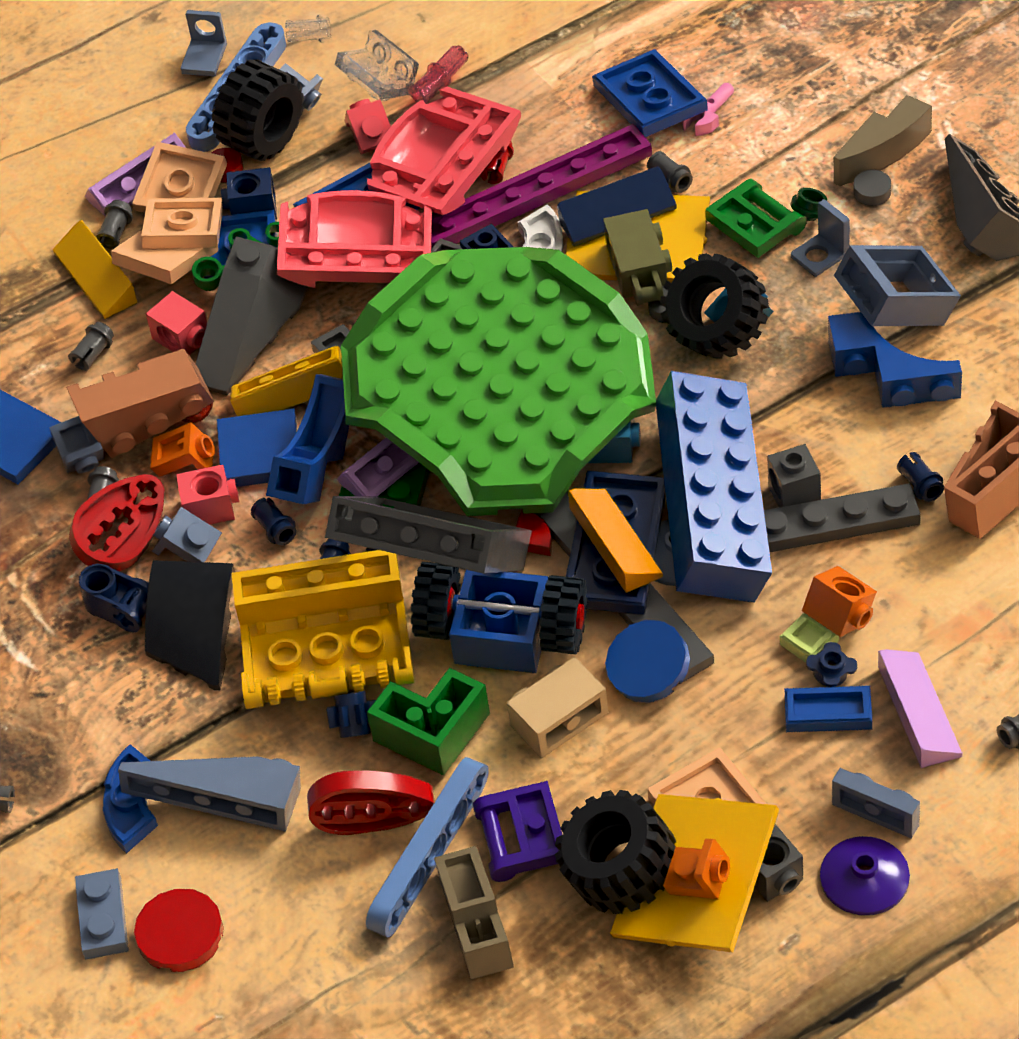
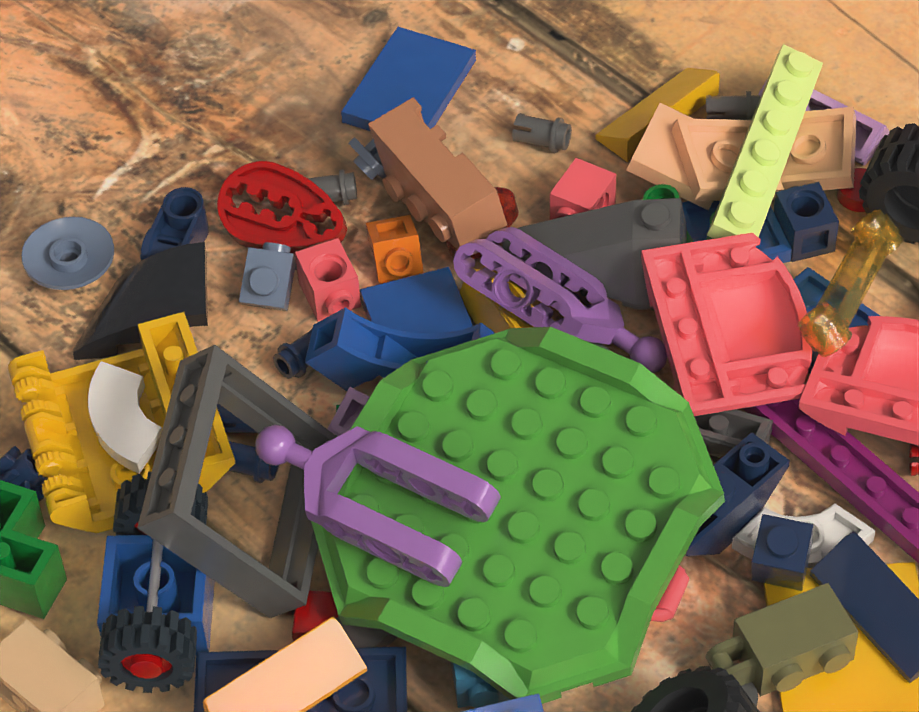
camera: 75 degrees right, 0 degrees up
(109, 664) = (67, 253): none -> sand blue dish
(182, 194) = (766, 145): none -> yellowish green plate
(263, 358) = (594, 323): none -> medium lavender piece
(306, 639) = (118, 417): none -> white tile
(336, 166) = (827, 324): none -> clear yellow piece
(457, 460) = (331, 464): none -> medium lavender piece
(568, 236) = (782, 552): none -> dark blue brick

